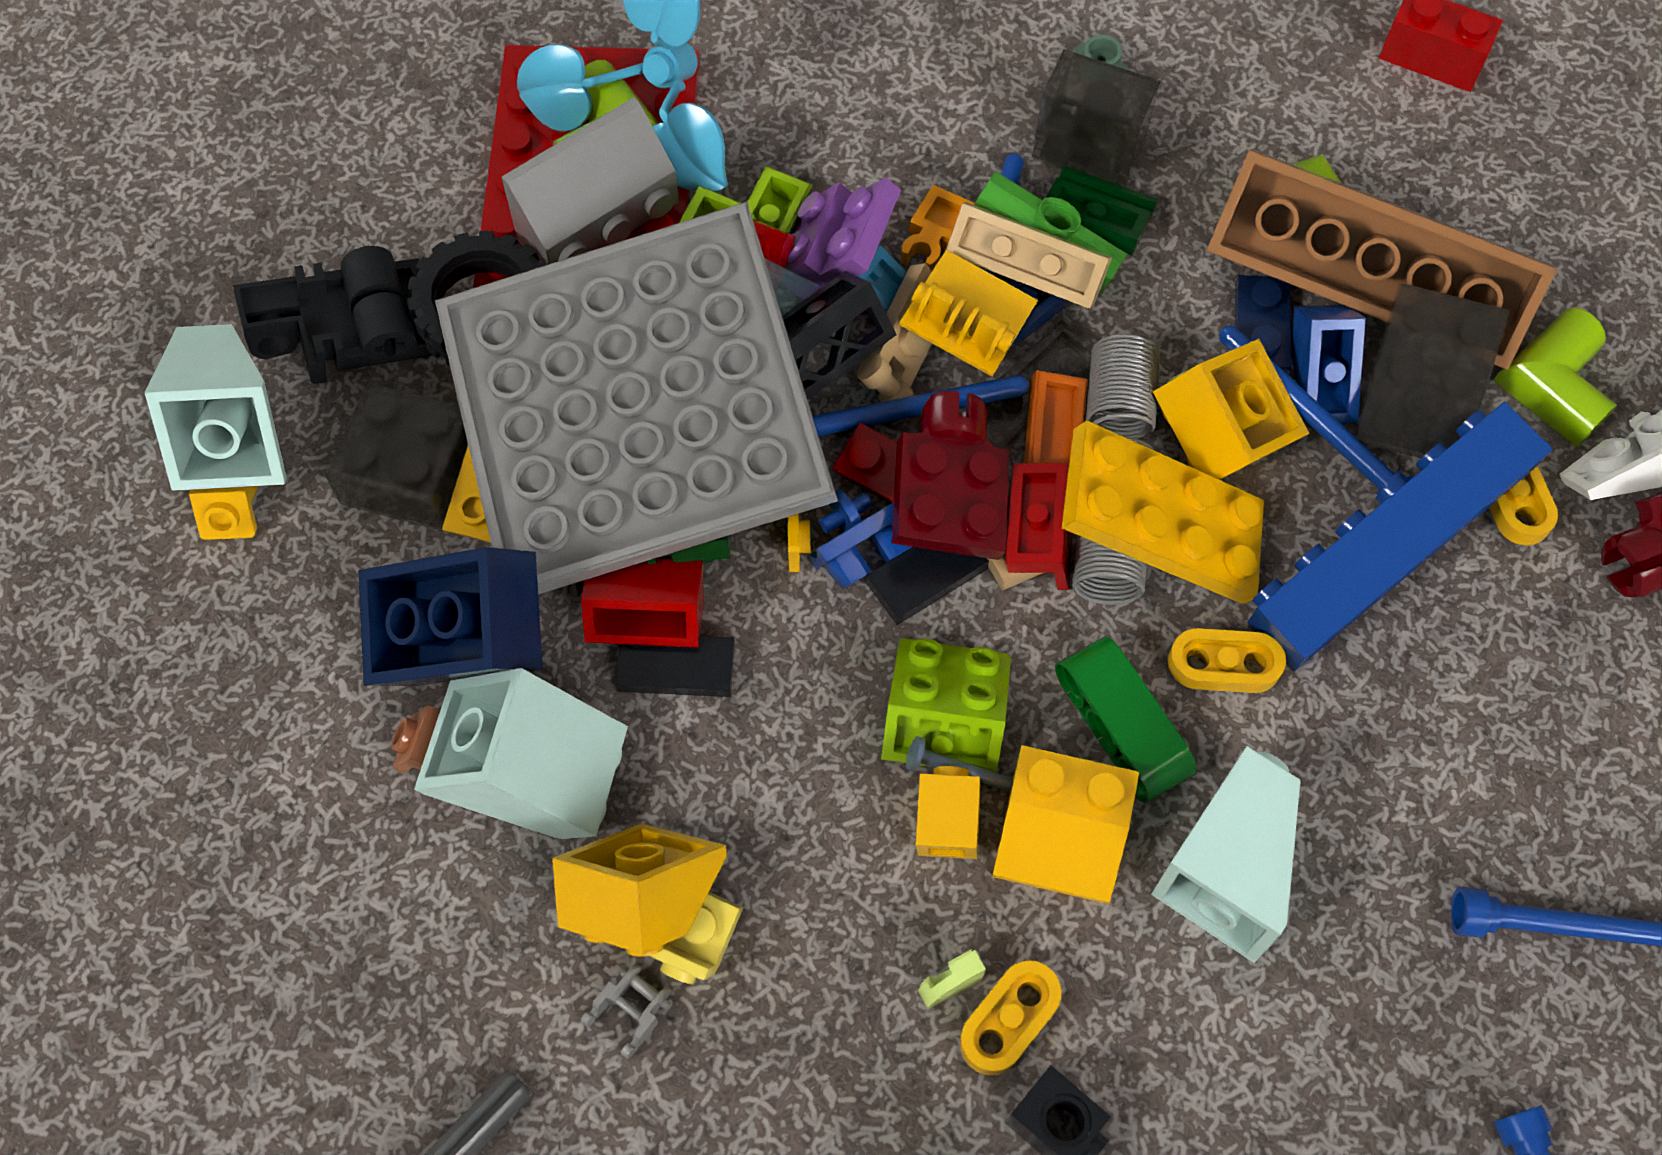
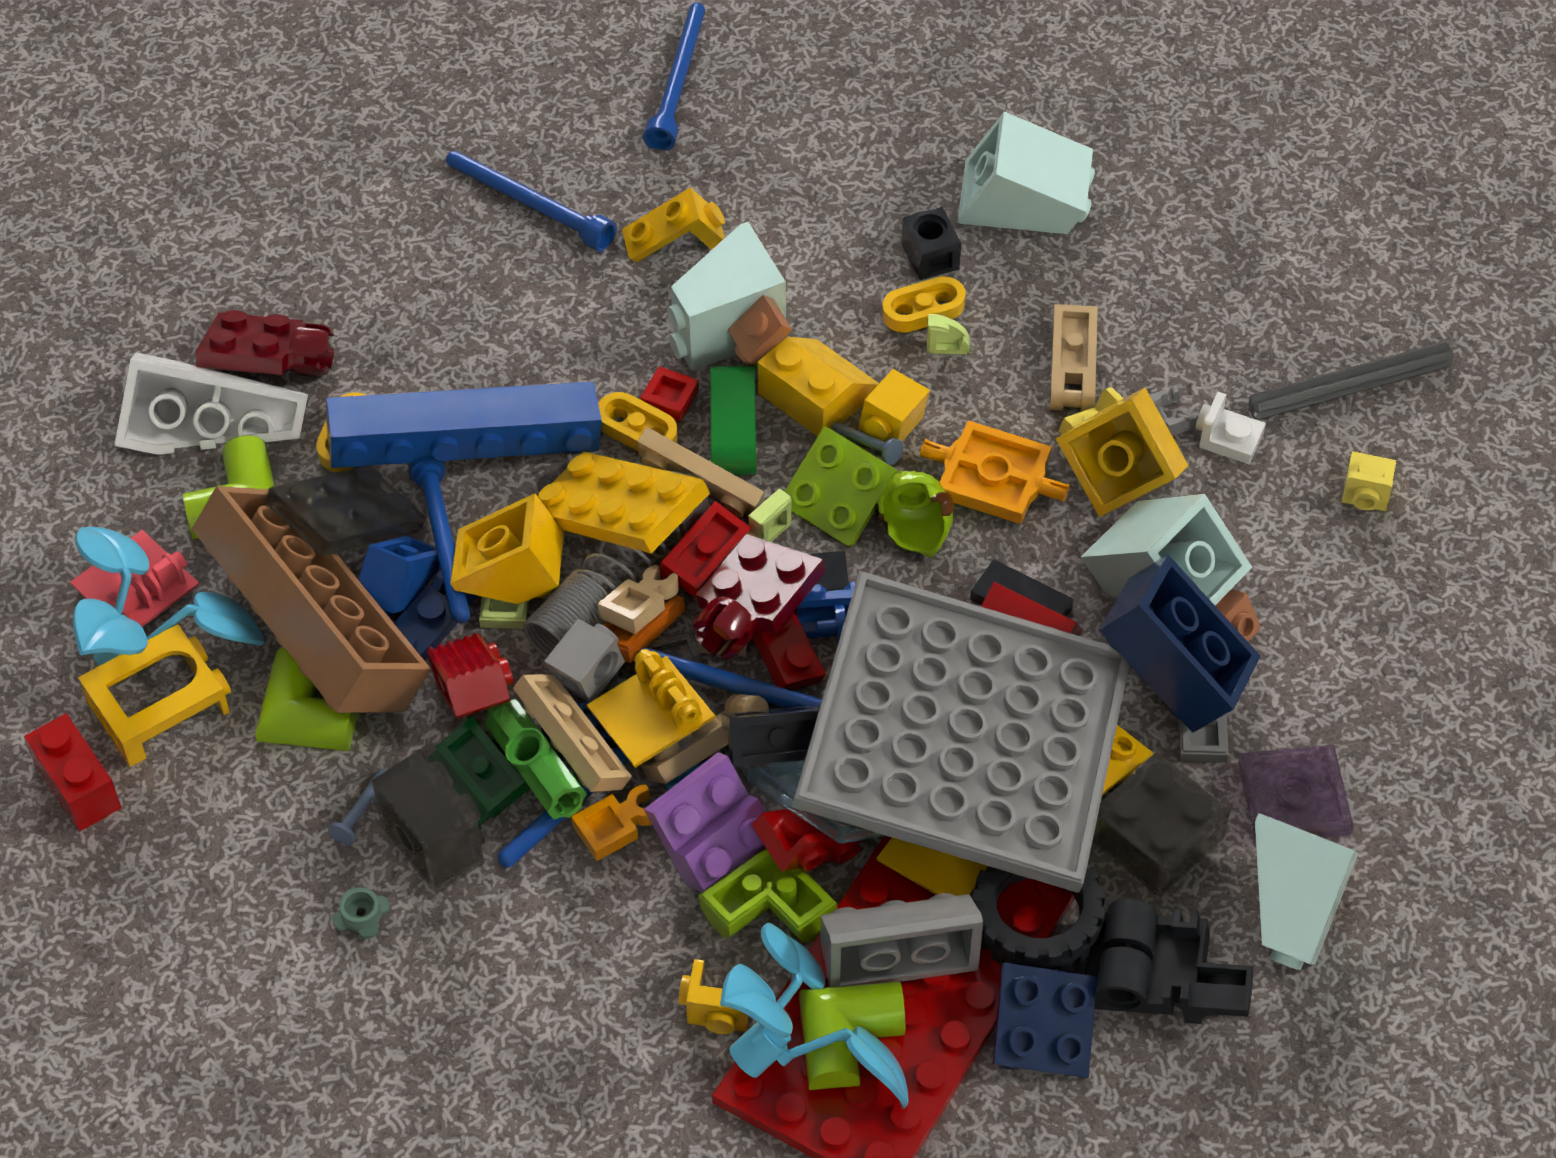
camera: 150 degrees left, 10 degrees down
(276, 571) = (1298, 789): none -> clear purple plate
(326, 1036) = (1369, 481): none -> light yellow bracket
(432, 215) = (1044, 1020): none -> dark blue hinge
(532, 1024) = (1228, 431): none -> white bracket
(744, 110) = (704, 1004): none -> yellow bracket
(781, 1038) = (1073, 356): none -> tan plate
(789, 808) = (995, 471): none -> light orange plate
(843, 690) = (916, 512): none -> lime hair
(999, 608) = (771, 516): none -> yellowish green tile
(1060, 408) = (636, 604): none -> tan plate
(1069, 332) = (585, 659): none -> light grey brick
(1108, 611) = (733, 492): none -> tan plate
(1164, 814) = (759, 330): none -> nougat bracket
(1169, 271) = (470, 674): none -> red brick
(1172, 113) = (343, 831): none -> sand blue pin
(1220, 719) = (671, 392): none -> red plate
(1385, 971) = (672, 220): none -> yellow bracket
(1452, 103) = (129, 733): none -> yellow panel
(1519, 81) = (108, 633): none -> medium azure plant
(1567, 235) = (148, 593): none -> coral hinge

